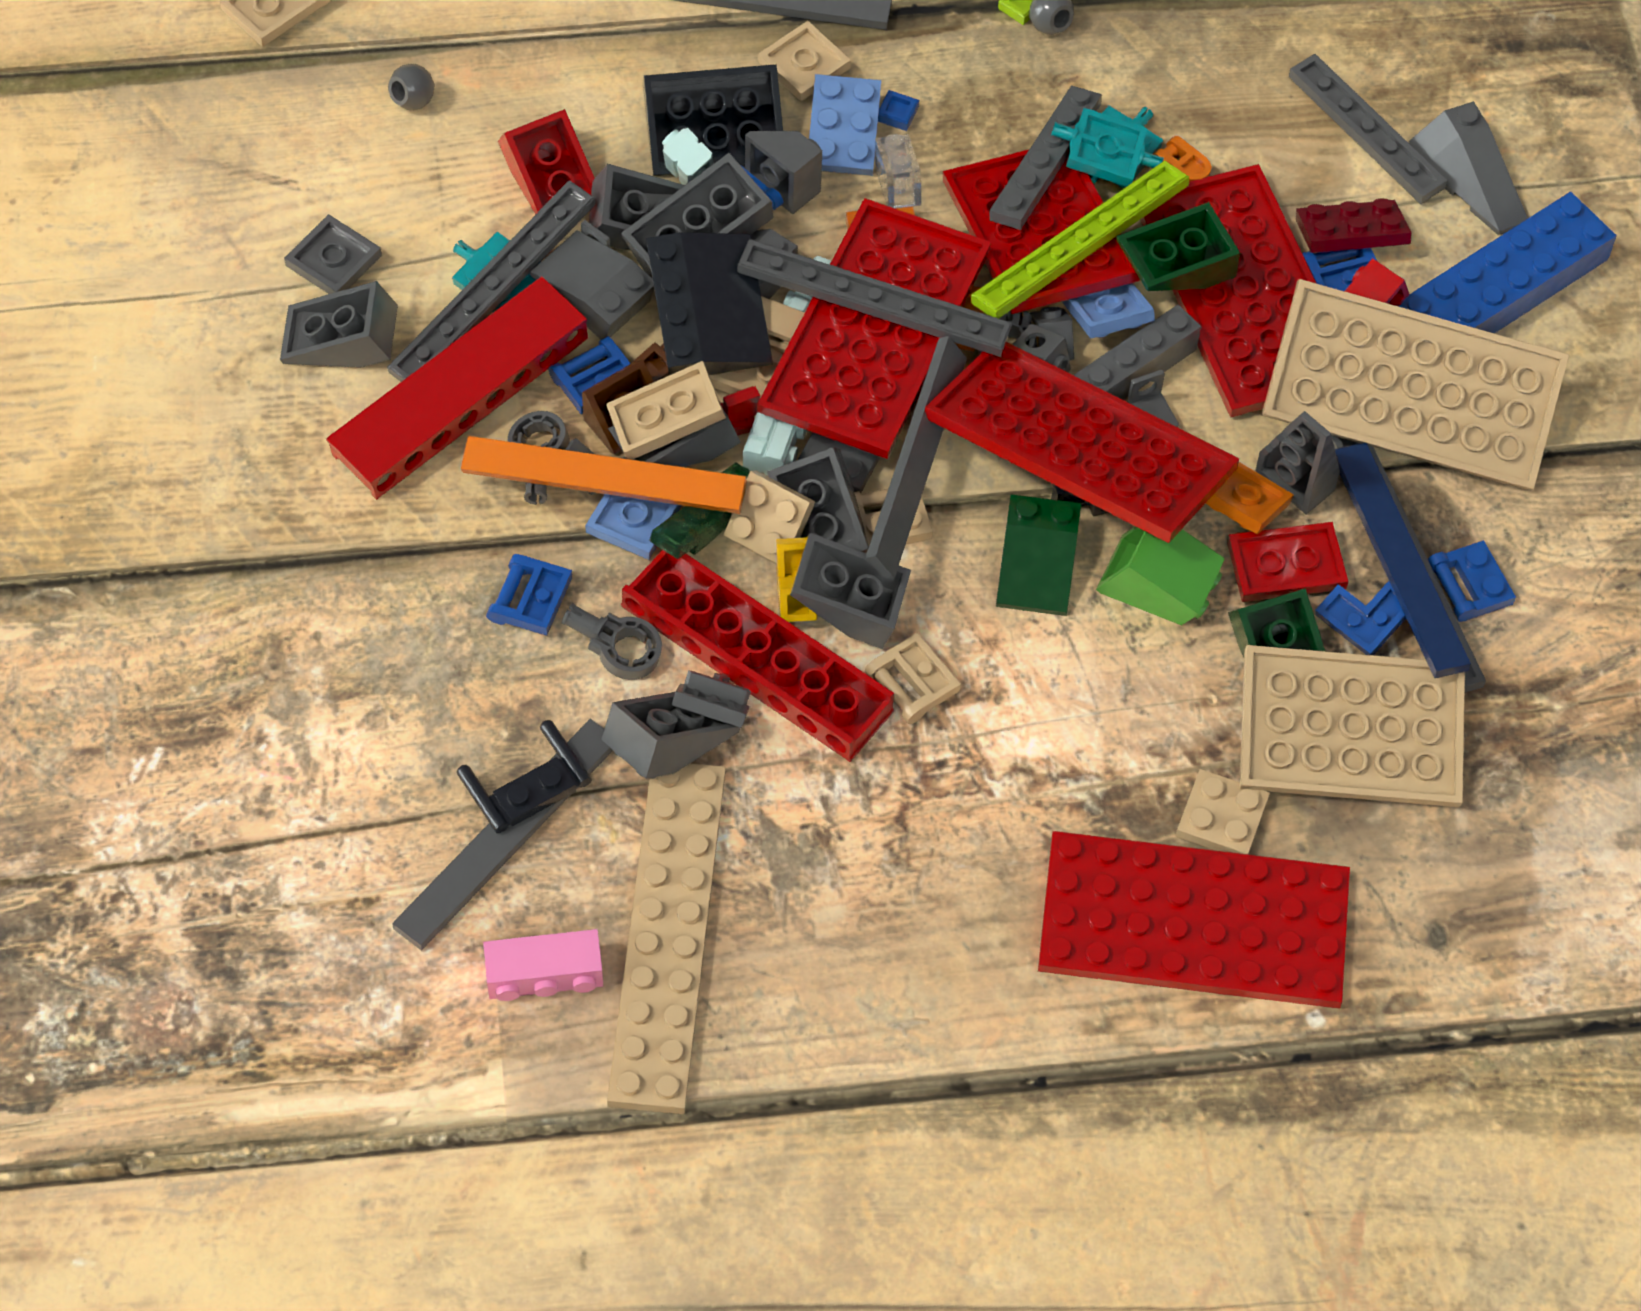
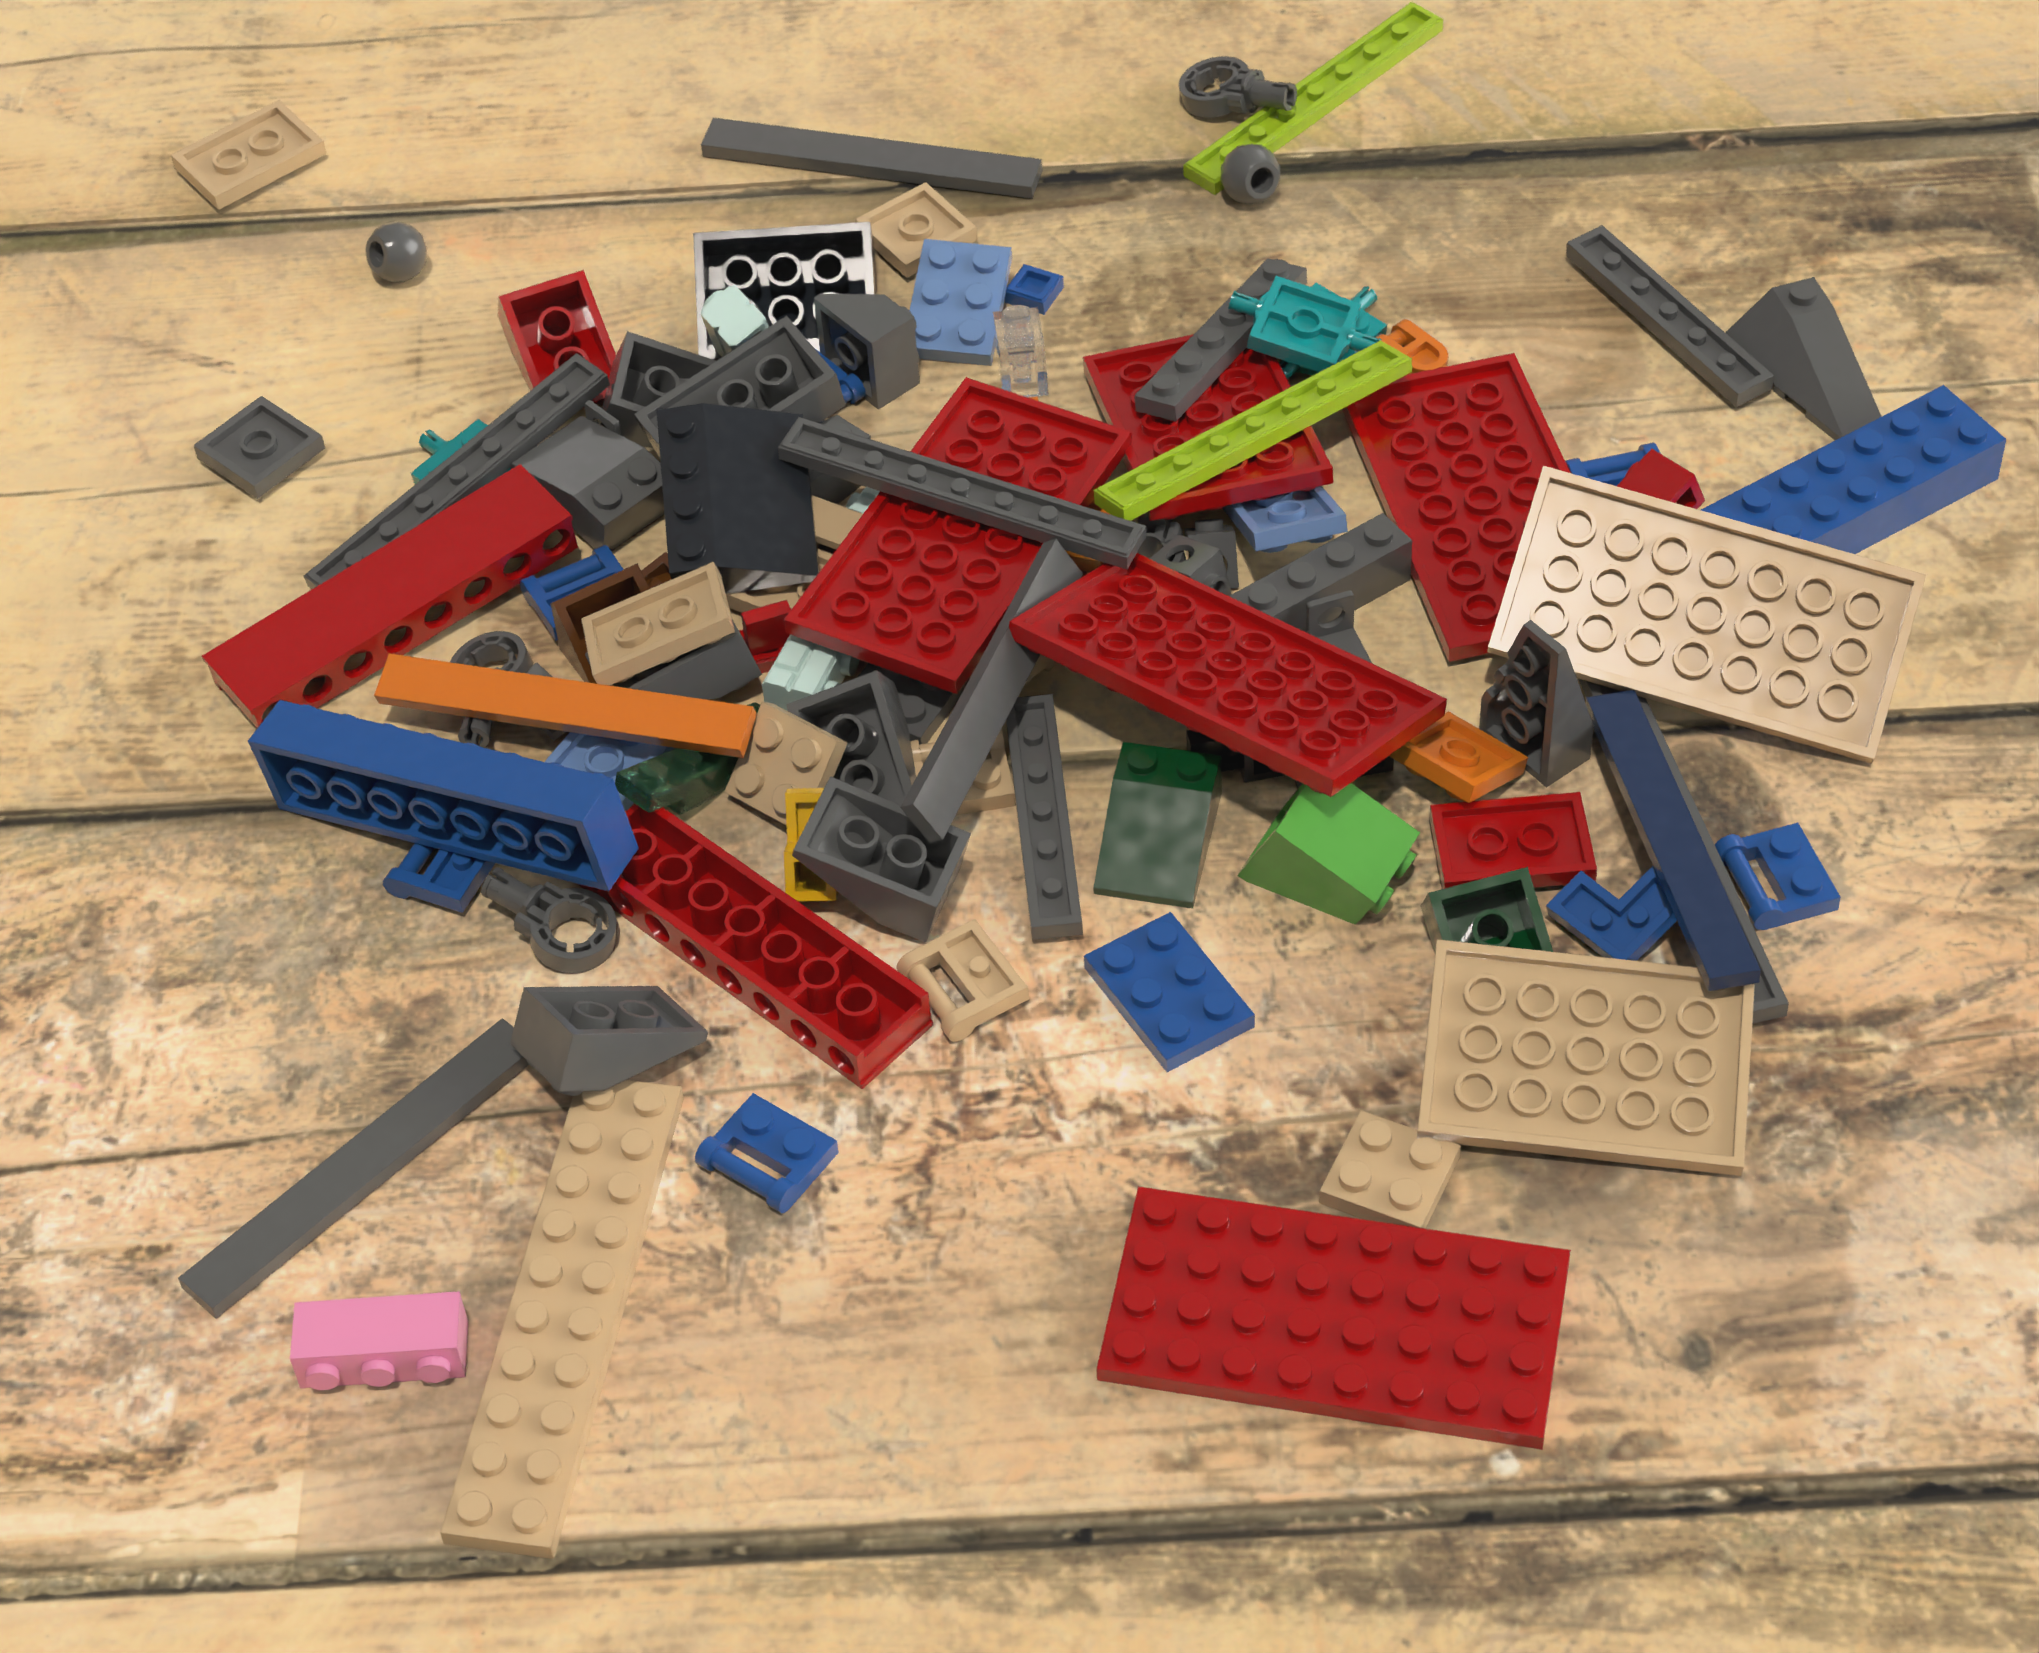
camera: 10 degrees right, 10 degrees down
(341, 328) = (254, 529): dark grey slope -> none
(529, 550) = (445, 794): none -> blue brick
(532, 790) = (403, 1107): black plate -> none
(713, 698) = (674, 993): dark grey slope -> none
(797, 805) = (775, 1141): none -> blue plate
(956, 553) = (1043, 819): none -> dark grey plate
(1057, 681) = (1169, 991): none -> blue plate
(1182, 251) = (1393, 446): dark green slope -> none
(1353, 225) = (1638, 427): dark red plate -> none

